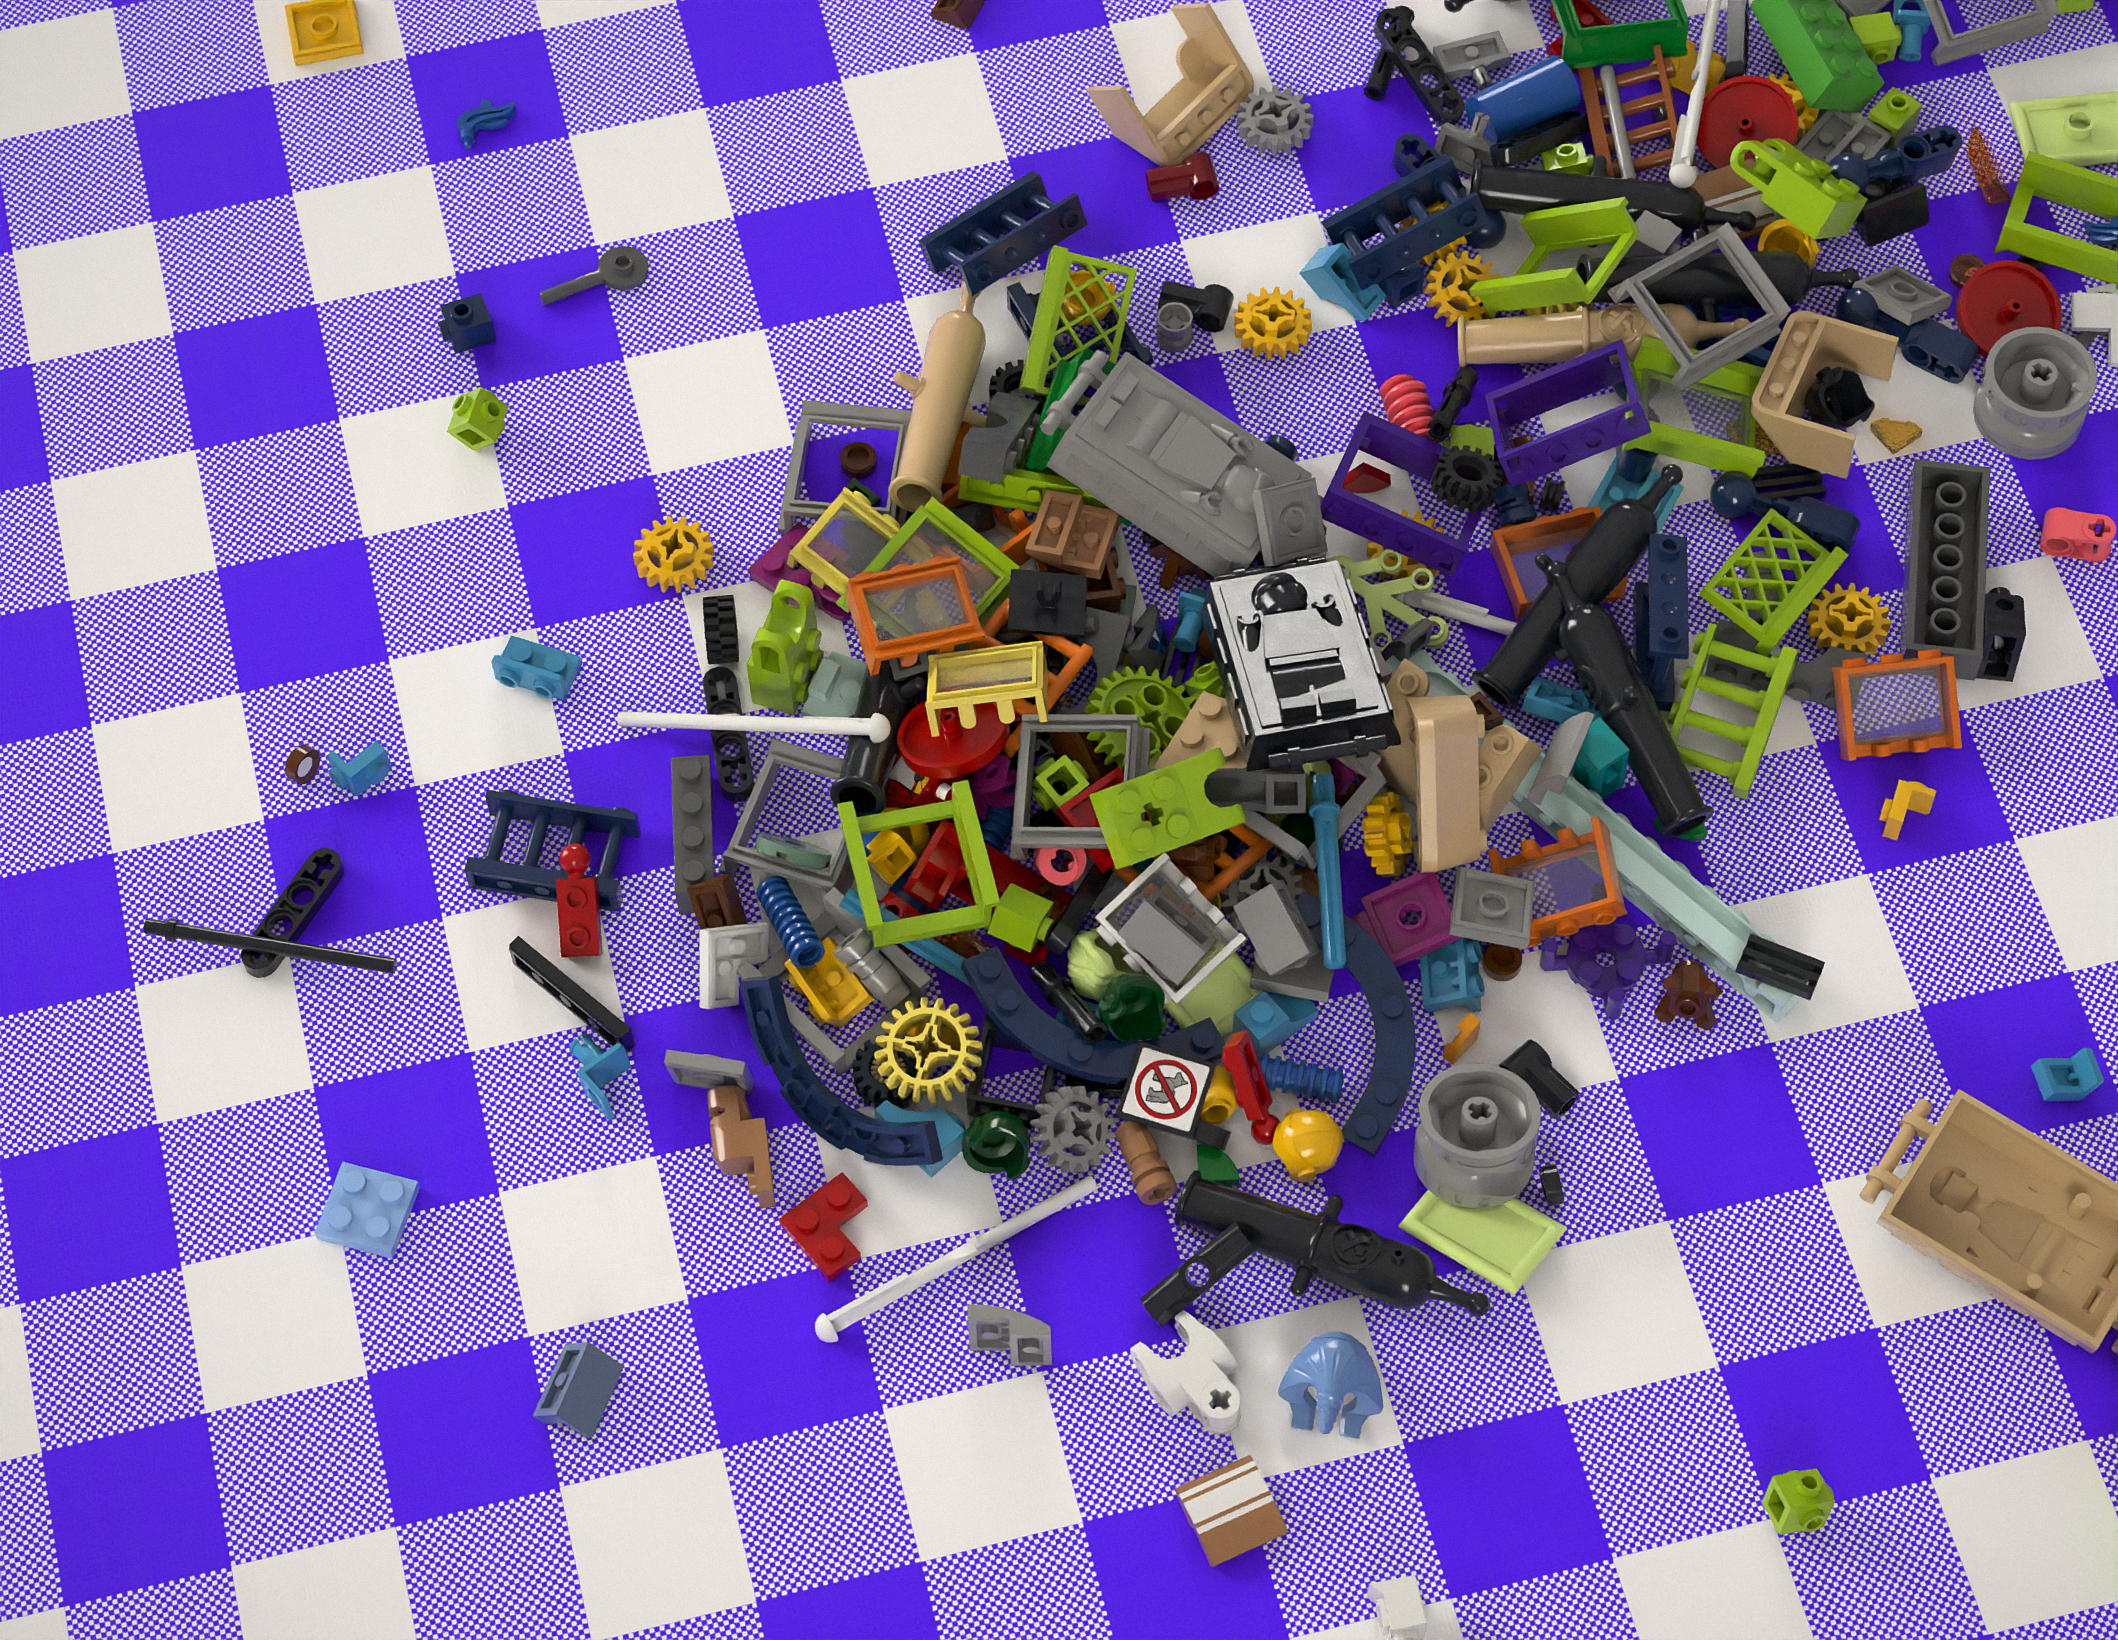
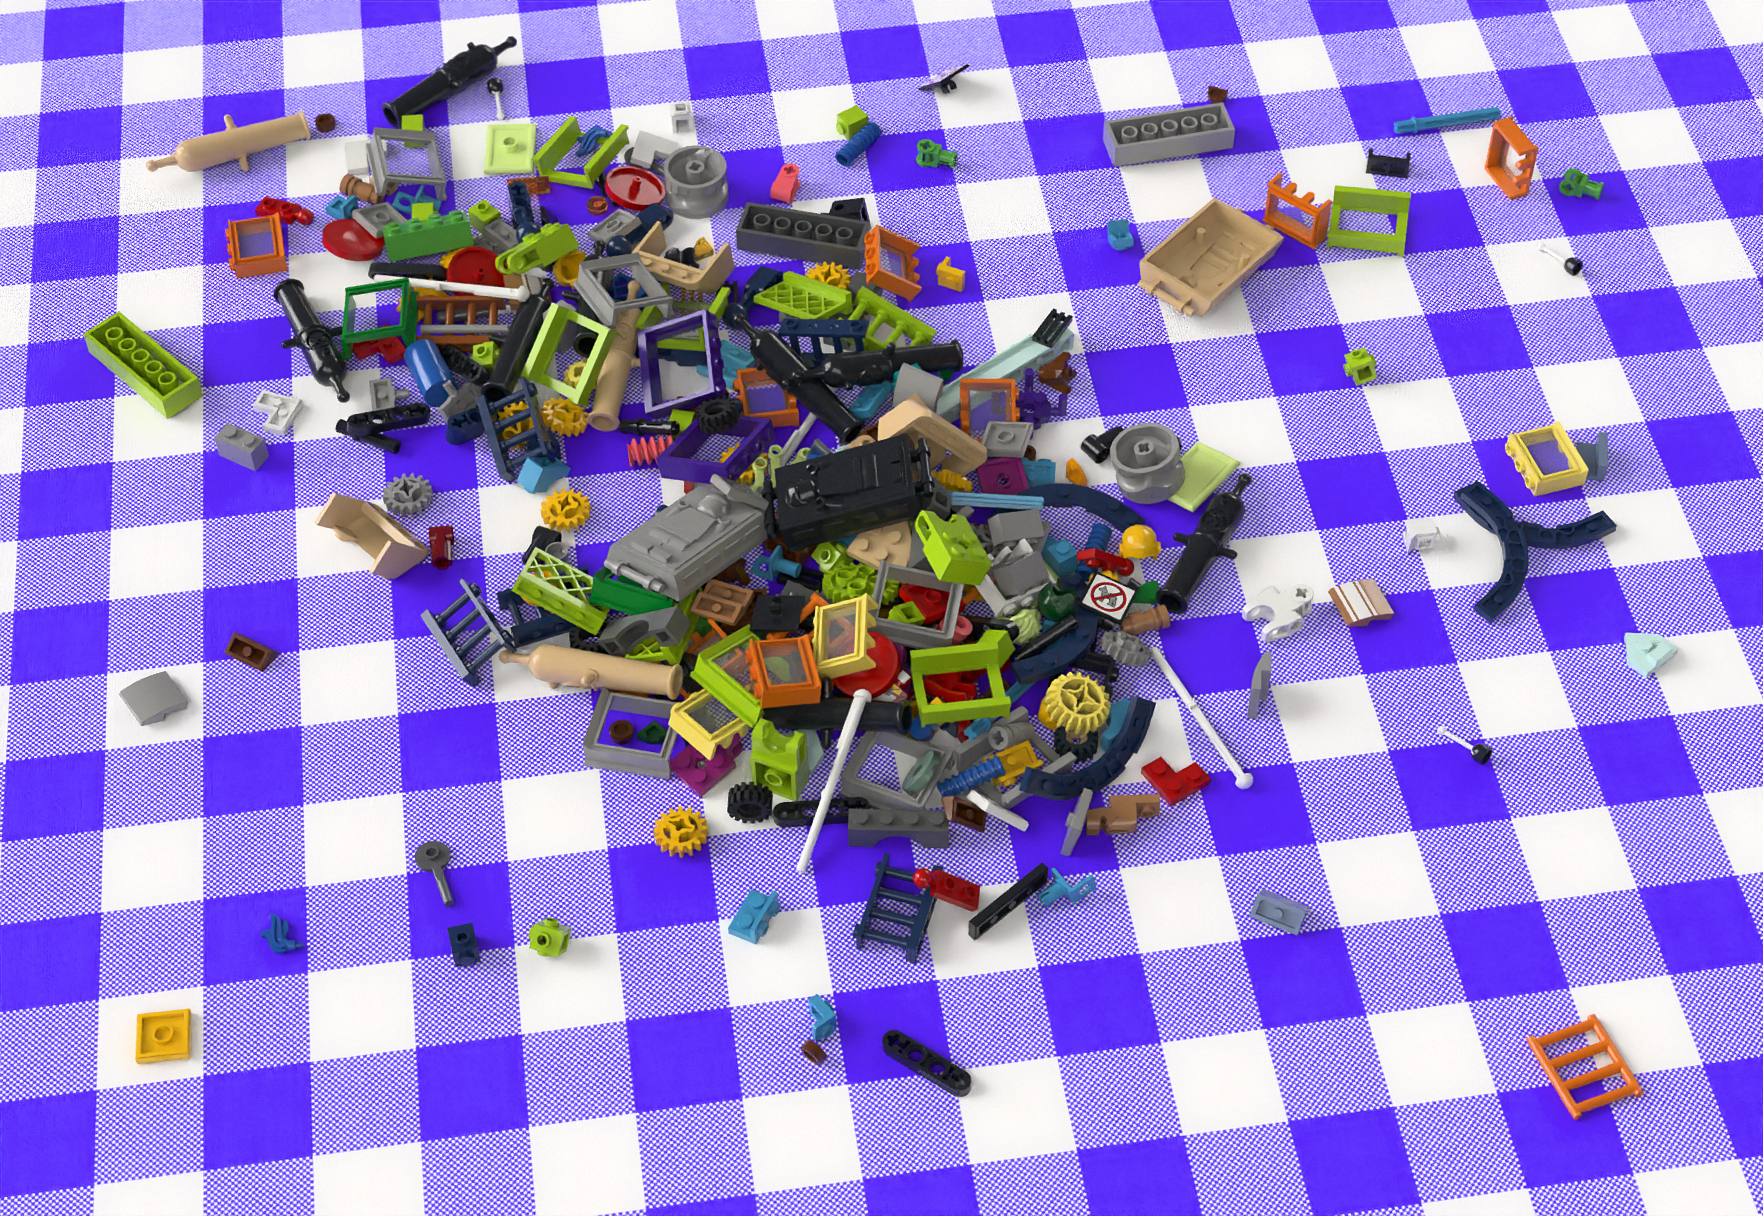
camera: 85 degrees left, 10 degrees down
(174, 930) = (939, 1127): black bar -> none
(367, 1210) = (1150, 1023): light blue plate -> none
(997, 1144) = (1131, 681): dark green cap -> none
(1151, 641) = (780, 581): dark grey slope -> none
(1177, 1290) = (1223, 596): black piece -> none
(1334, 1366) = (1282, 542): medium blue piece -> none

